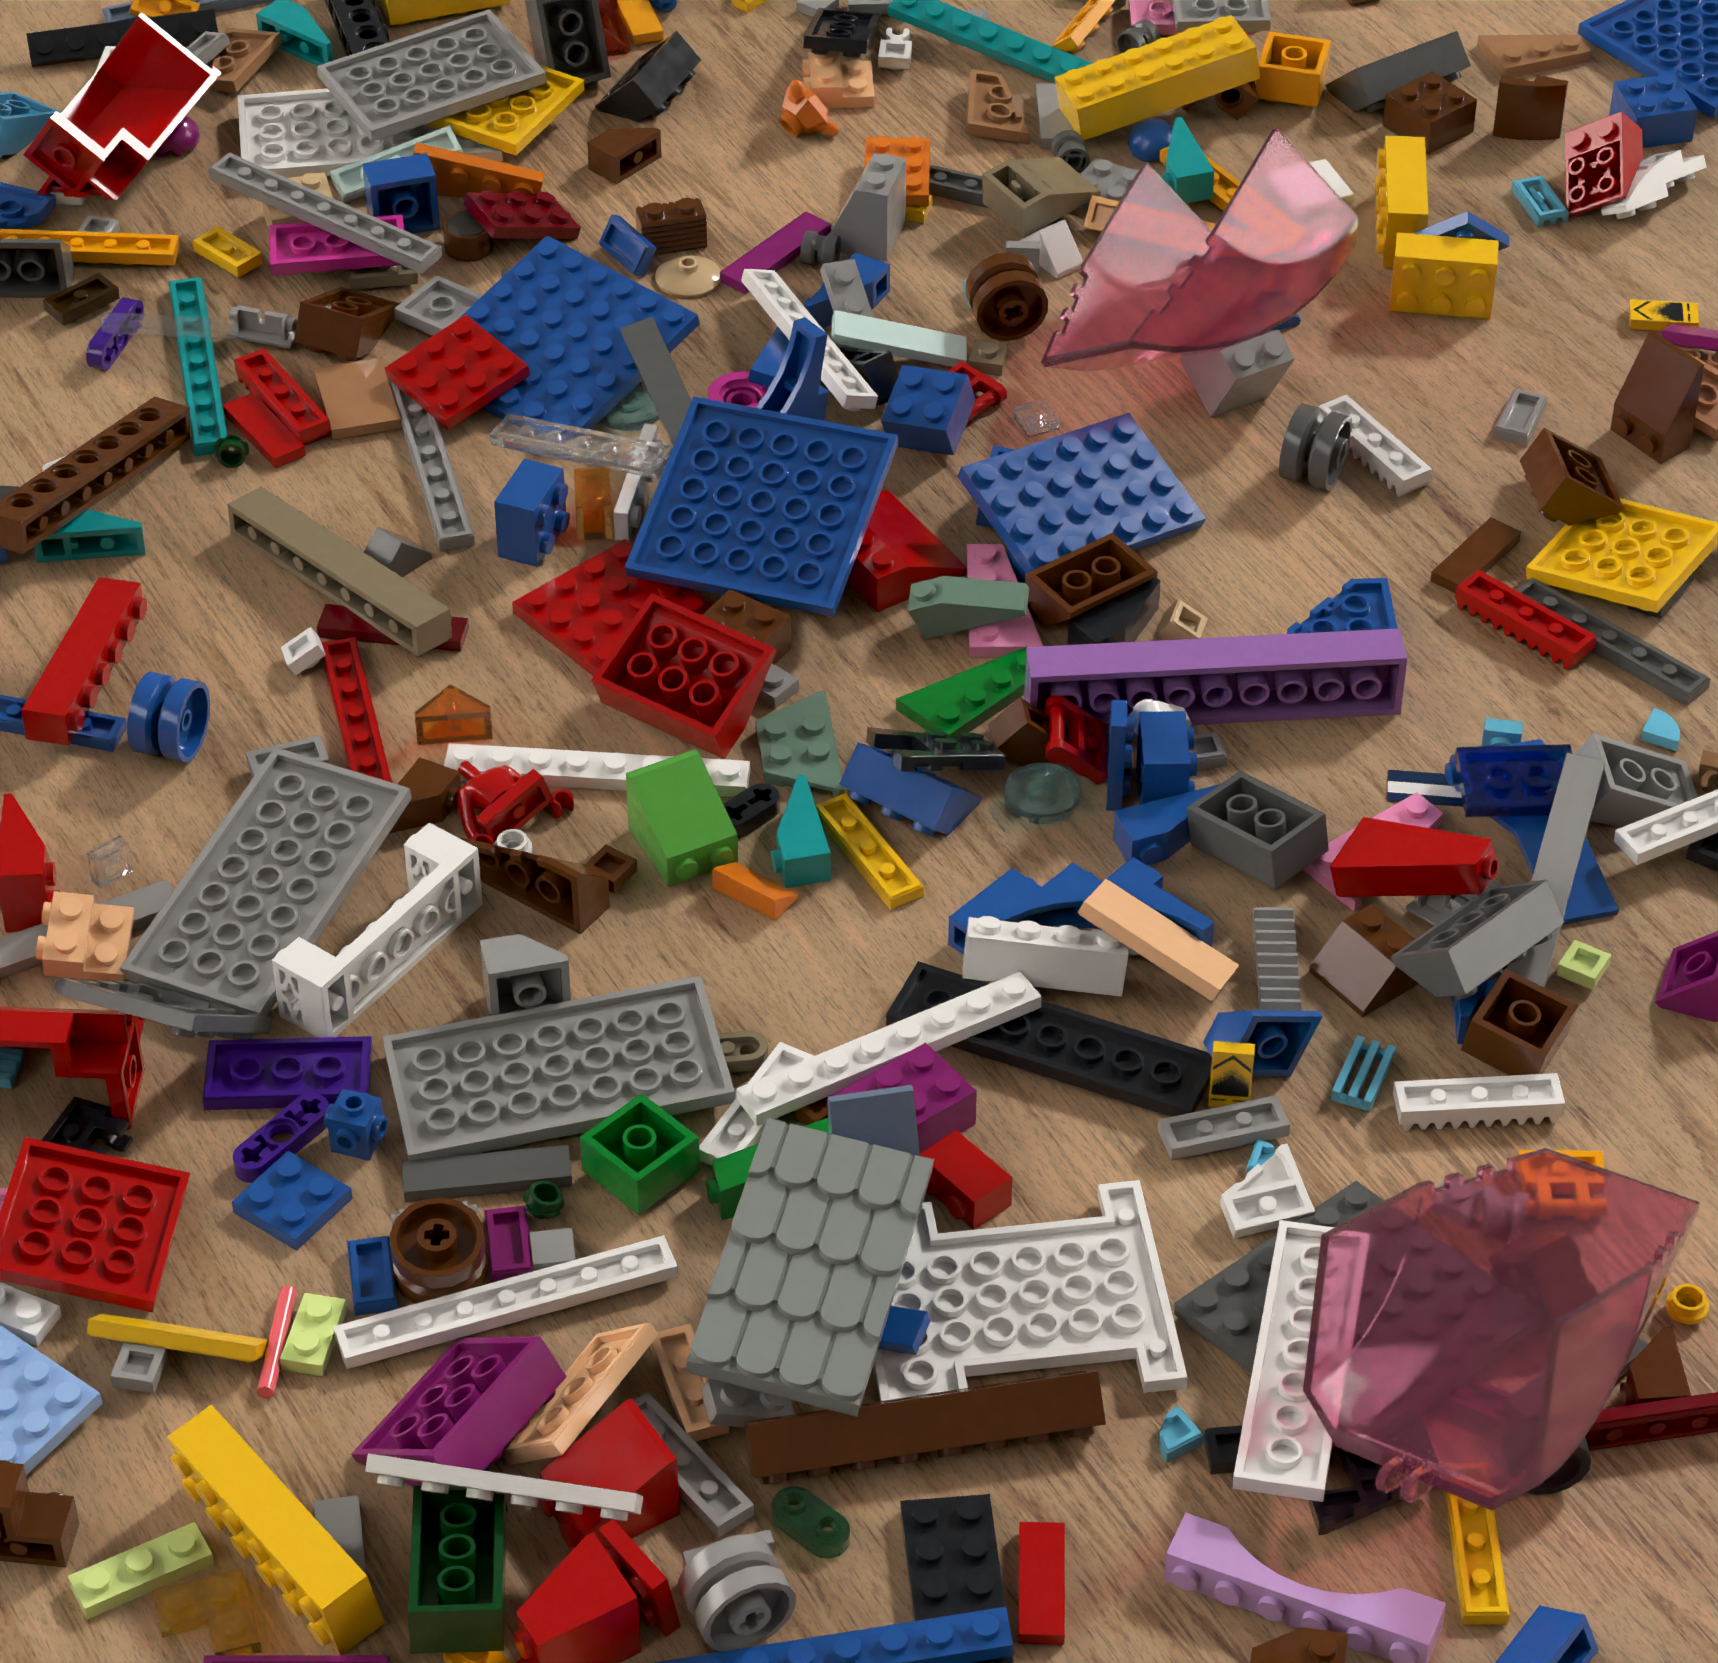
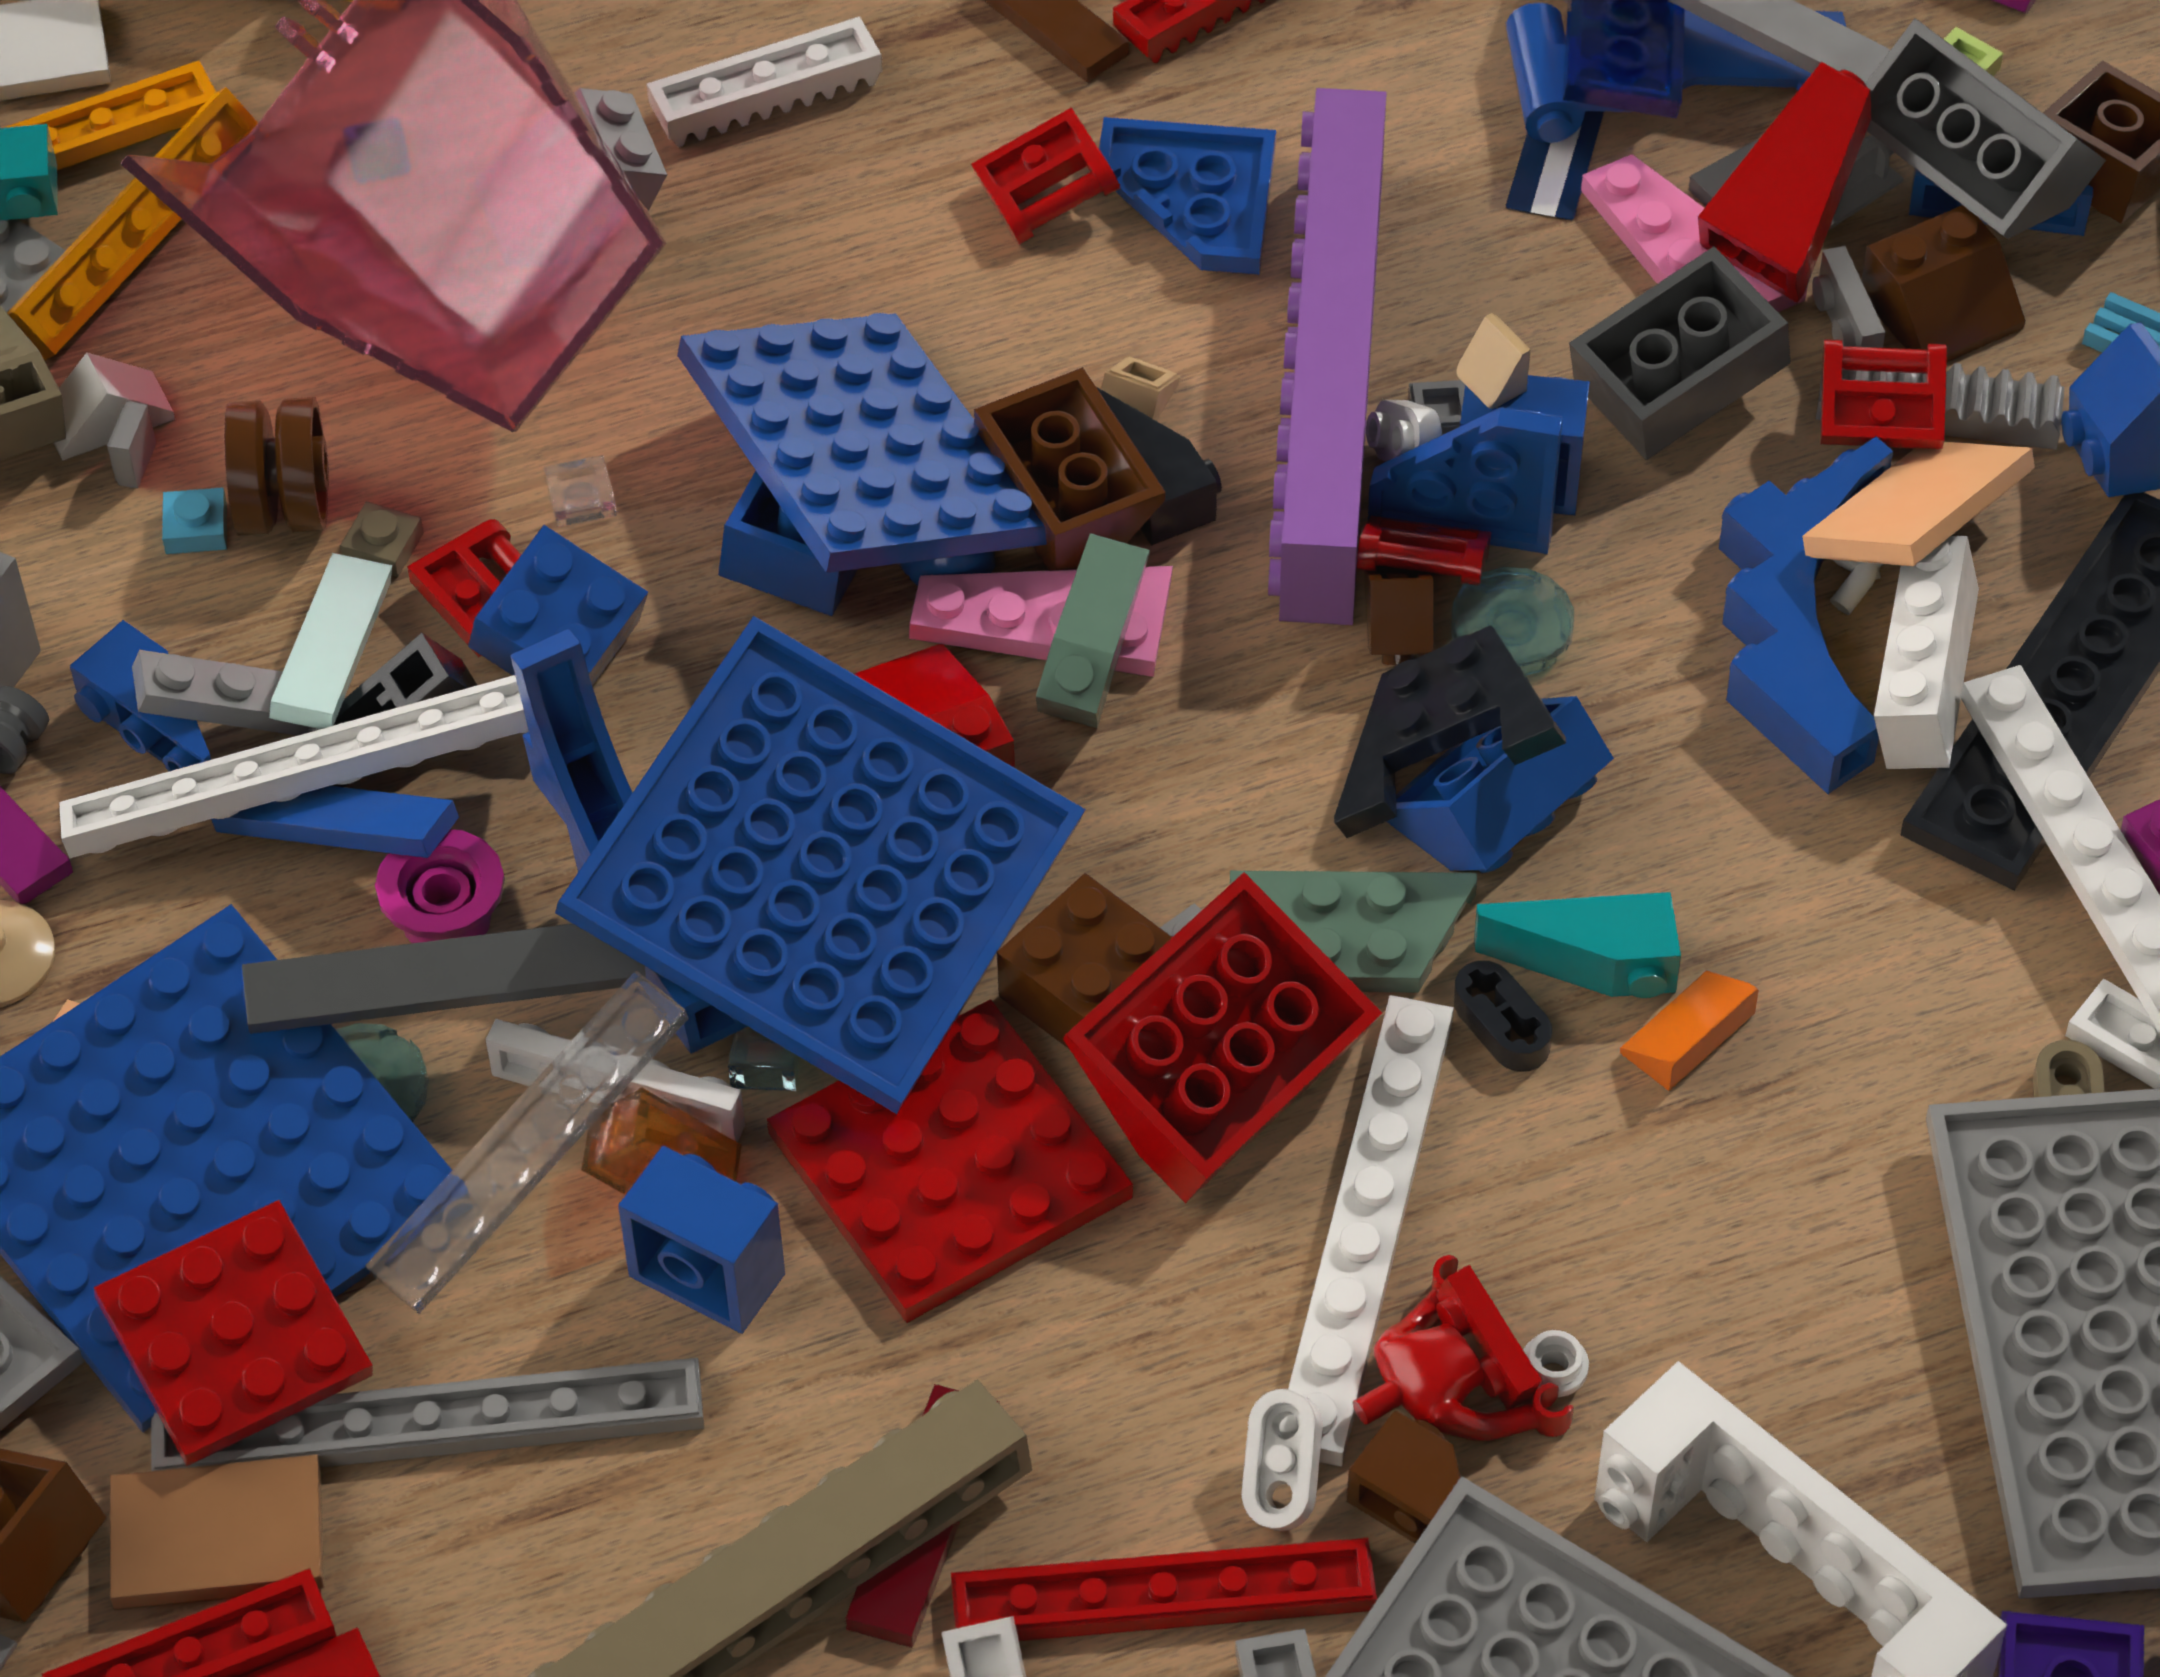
camera: 80 degrees left, 10 degrees up
(396, 551) = (726, 1488): dark grey slope -> none
(432, 738) = (1281, 1461): none -> white plate
(453, 718) = (1207, 1423): clear orange slope -> none
(522, 974) = (1936, 1361): light grey slope -> none
(546, 884) = (1686, 1292): reddish brown wedge -> none
(613, 866) = (1630, 1221): reddish brown plate -> none
(680, 818) = (1556, 1097): bright green slope -> none
(869, 851) = (1623, 859): yellow tile -> none
(968, 697) = (1271, 687): green wing -> none
(1155, 828) = (1632, 481): blue slope -> none
(1182, 714) = (1495, 363): none -> tan slope
(1237, 924) = (1893, 411): none -> red plate
(1315, 447) = (795, 133): dark grey wheel -> none
(1319, 922) = (1846, 301): none -> light grey plate
(1341, 556) = (1038, 162): none -> red plate
(1501, 732) = (1488, 58): medium azure plate -> none

